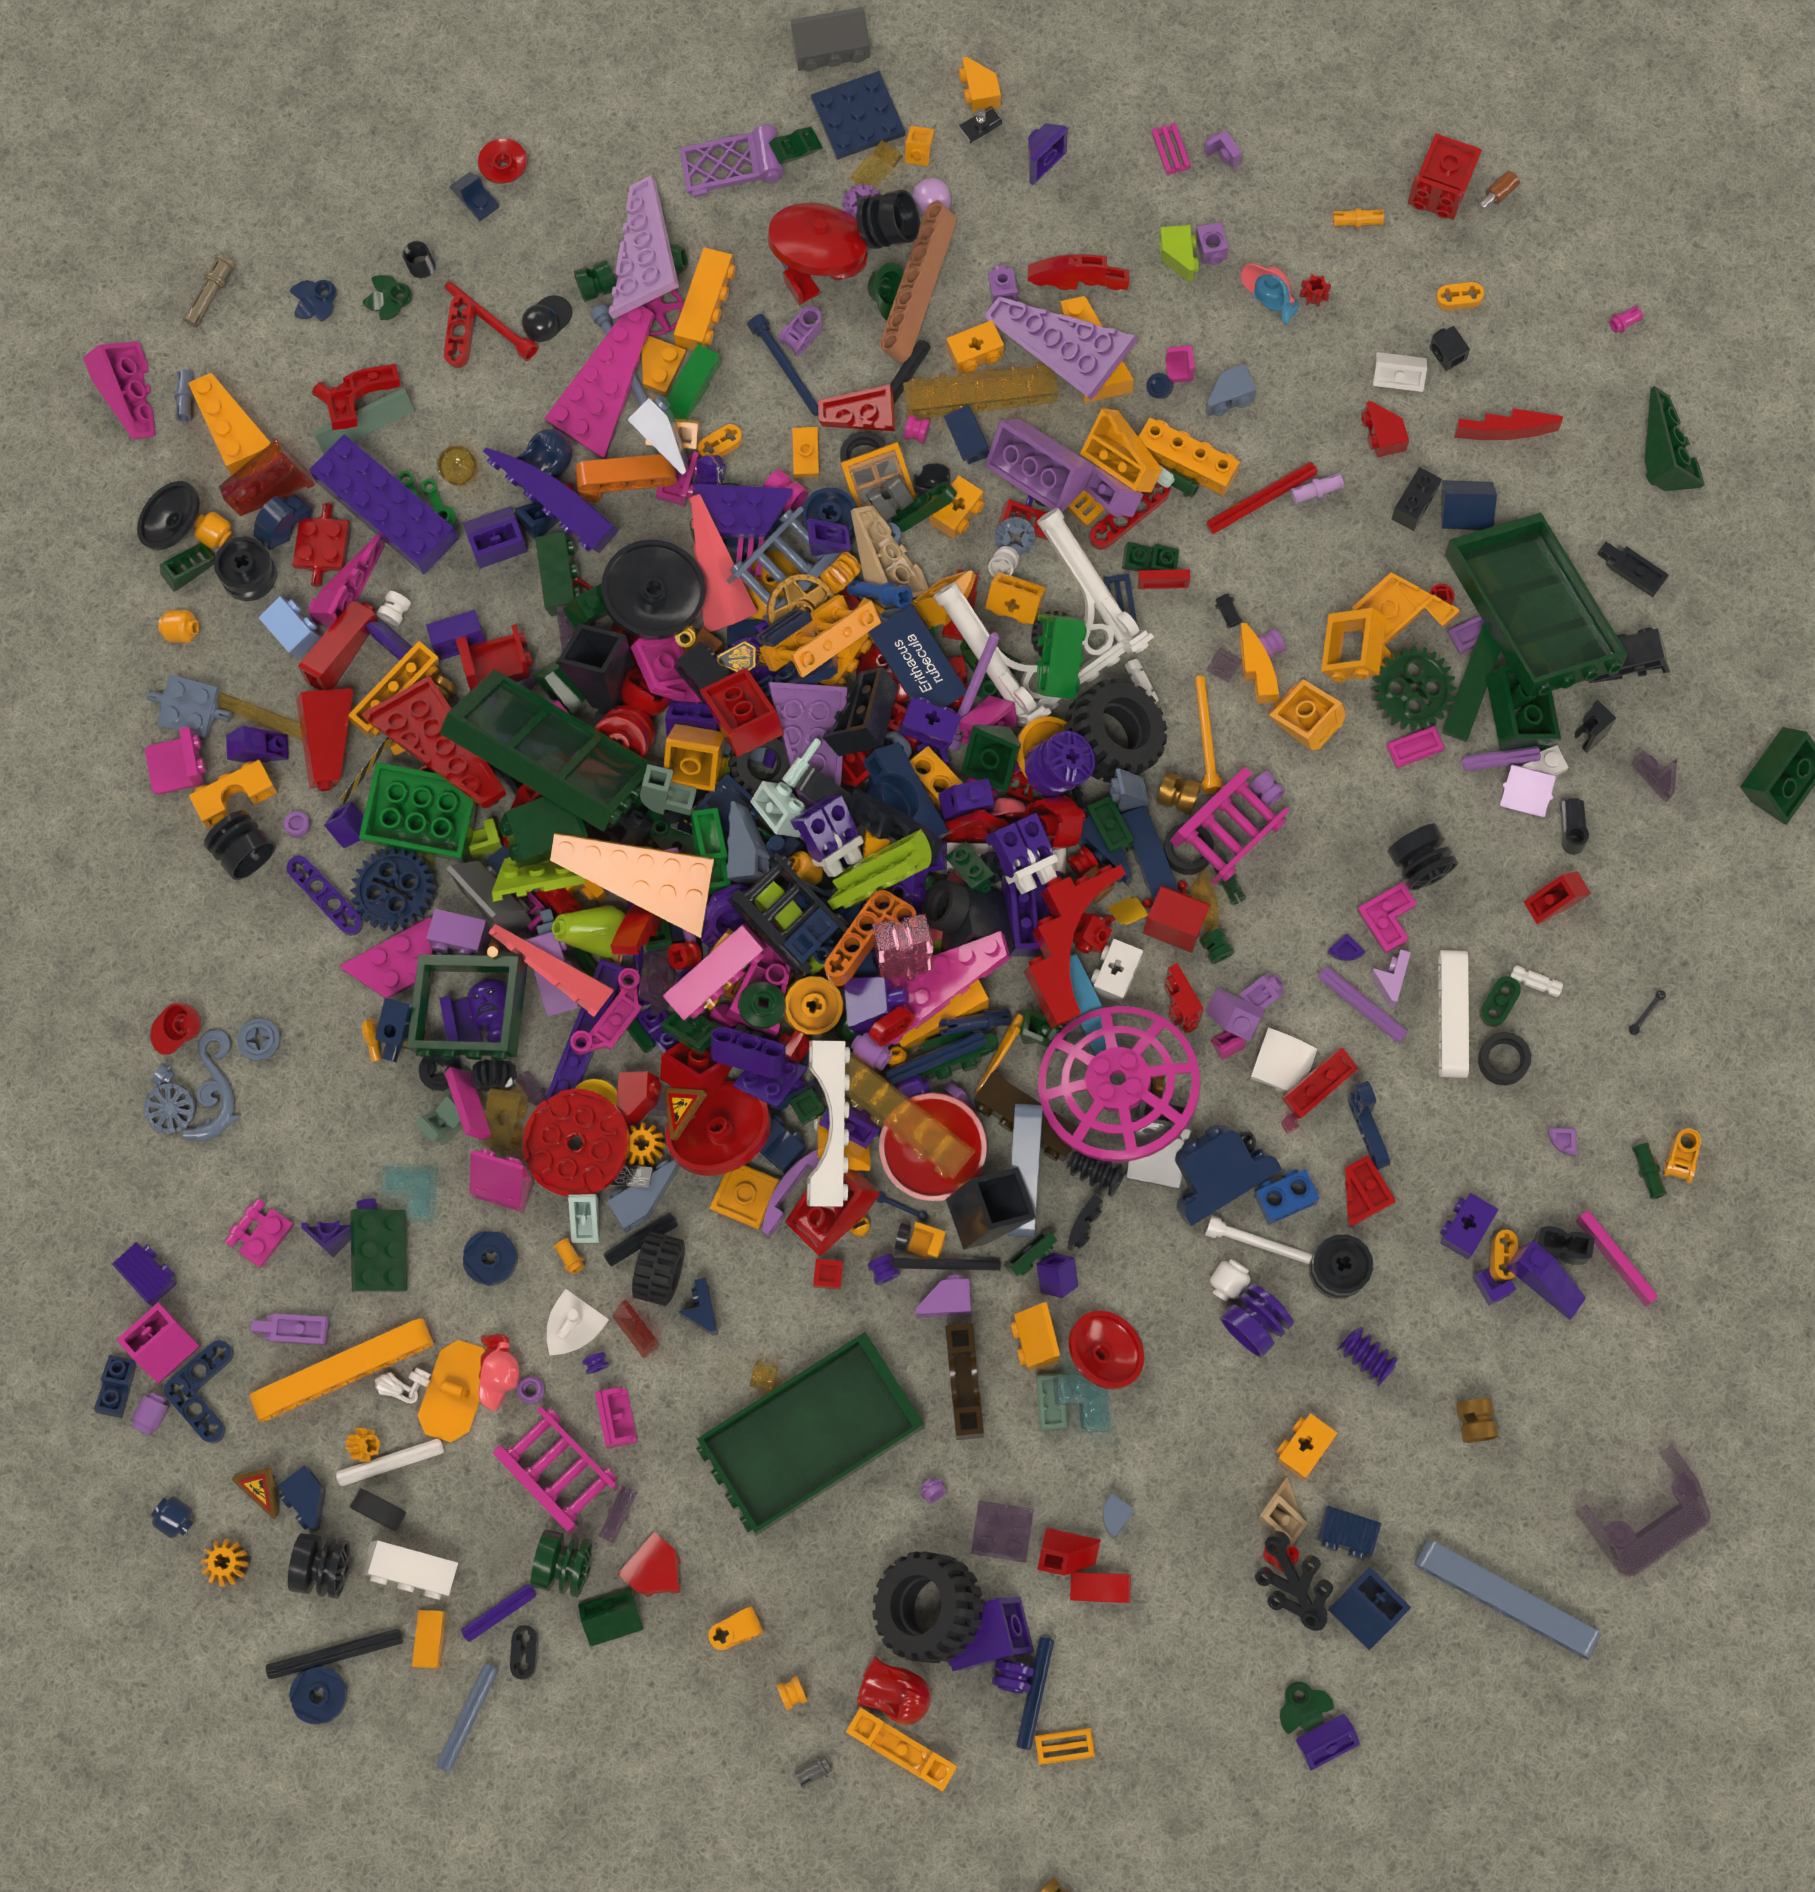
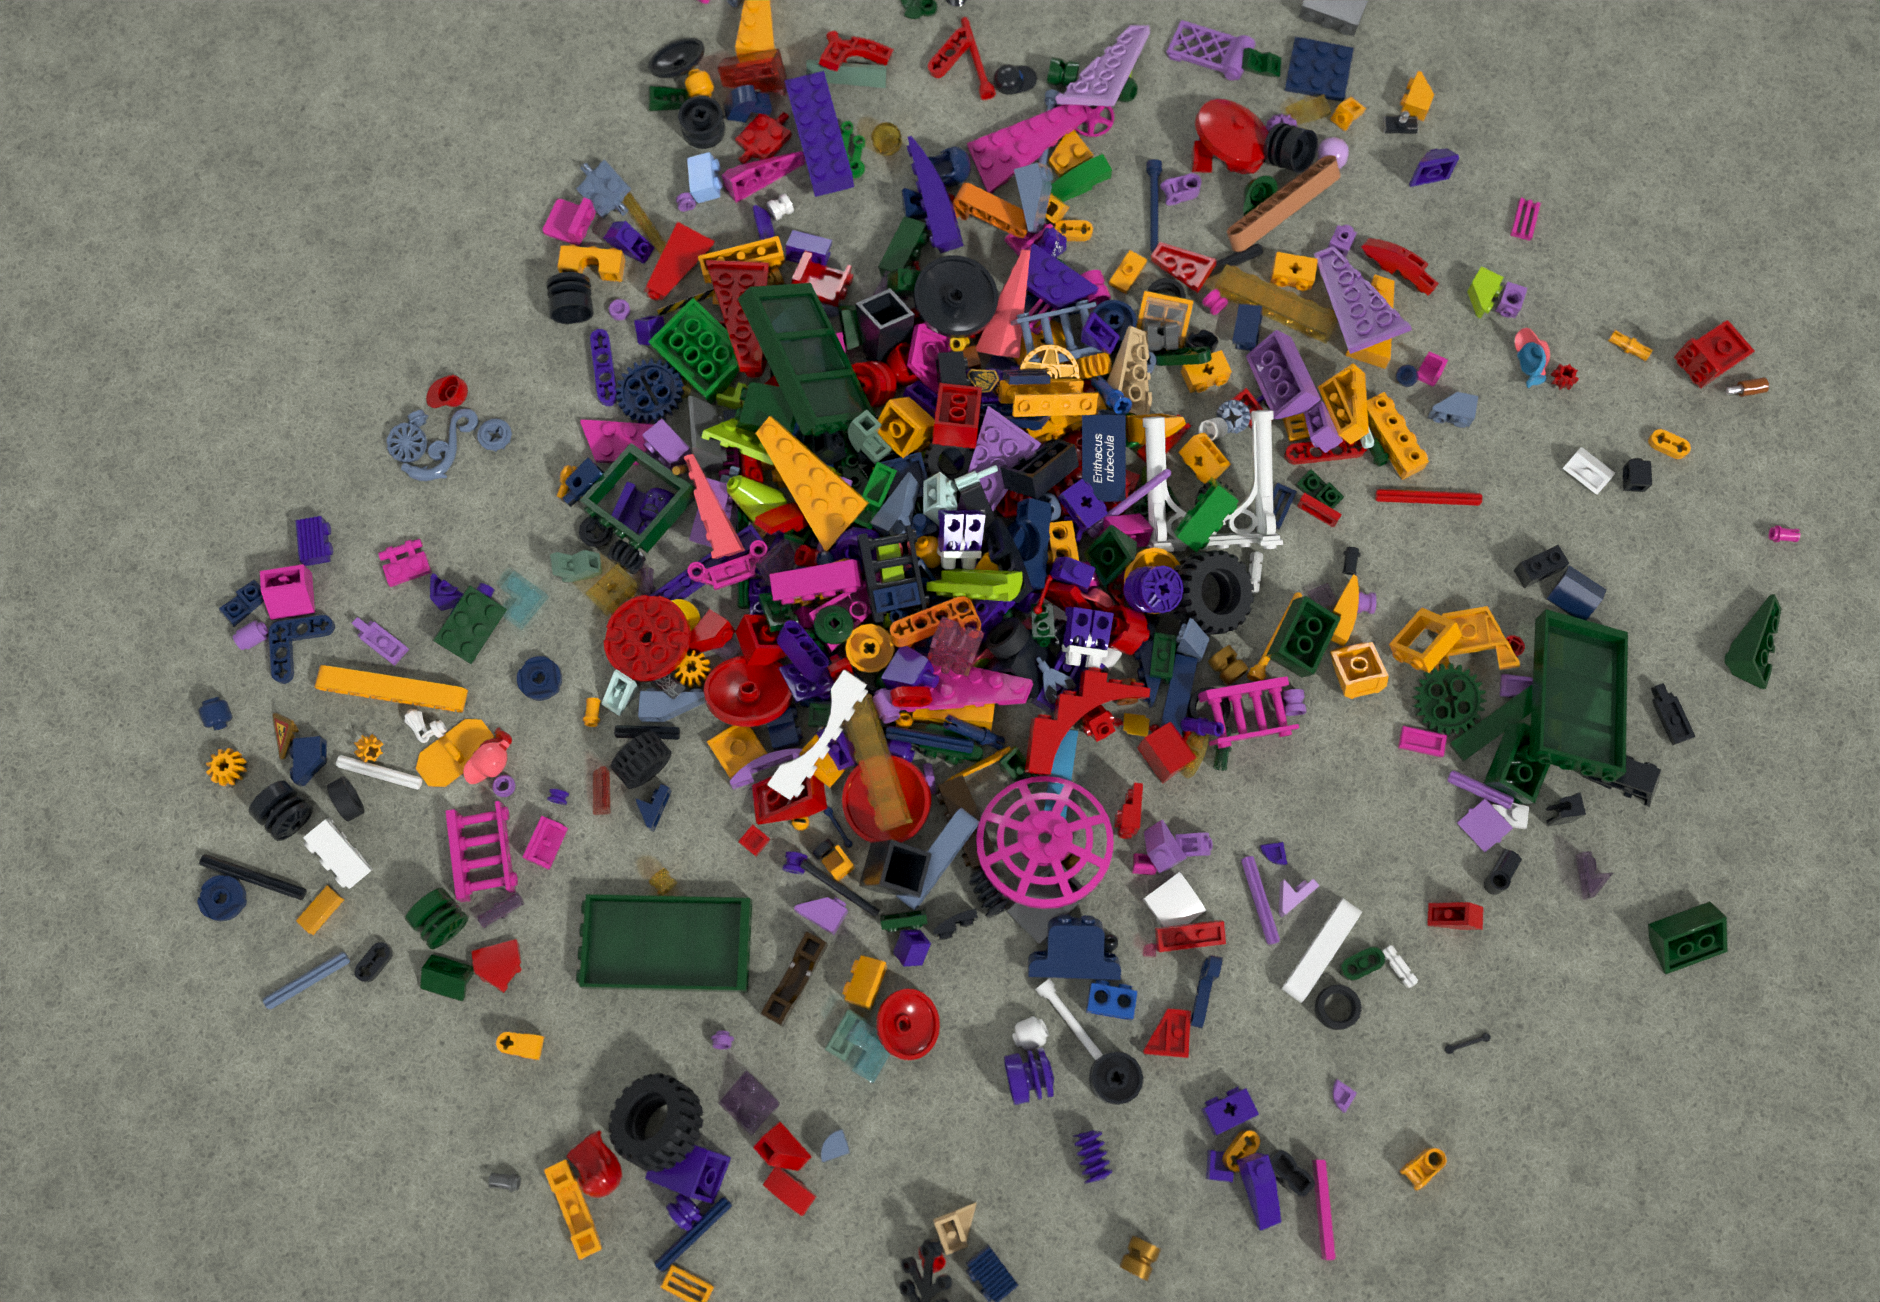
camera: 30 degrees right, 0 degrees up
(178, 626) = (633, 132): light orange head -> none
(287, 665) = (685, 202): none -> medium lavender bush
(337, 647) = (724, 209): red slope -> none
(467, 1103) = (594, 564): dark pink tile -> none
(495, 537) = (878, 201): dark purple slope -> none
(498, 1612) = (375, 923): dark purple axle -> none
(499, 1180) = (579, 629): dark pink slope -> none
(572, 1324) = (563, 760): white shield -> none
(681, 1107) = (733, 660): piece -> none
(704, 299) = (1128, 128): light orange brick -> none
(704, 945) = (824, 558): none -> dark blue hinge
(791, 1693) = (527, 1116): light orange wheel -> none
(957, 857) = (1037, 609): none -> red hinge
(1016, 919) = (1051, 678): none -> sand blue piece
(1082, 861) = (1127, 669): red wheel -> none
(1116, 986) = (1112, 760): white brick -> none
(1195, 870) = (1202, 726): none -> dark purple pin
(1217, 946) = (1182, 790): dark green wheel -> none
(1226, 149) = (1565, 240): medium lavender bracket -> none
(1234, 717) = (1303, 636): none -> dark green brick
(1317, 488) = (1473, 515): lavender pin -> none
(1317, 1434) = (1017, 1192): light orange brick -> none
(1381, 916) = (1317, 844): dark pink plate -> none
(1385, 429) = (1551, 505): red slope -> none
(1420, 852) = (1374, 822): black wheel -> none
(1516, 426) = (1652, 560): red slope -> none
(1649, 1171) = (1391, 1161): dark green pin -> none

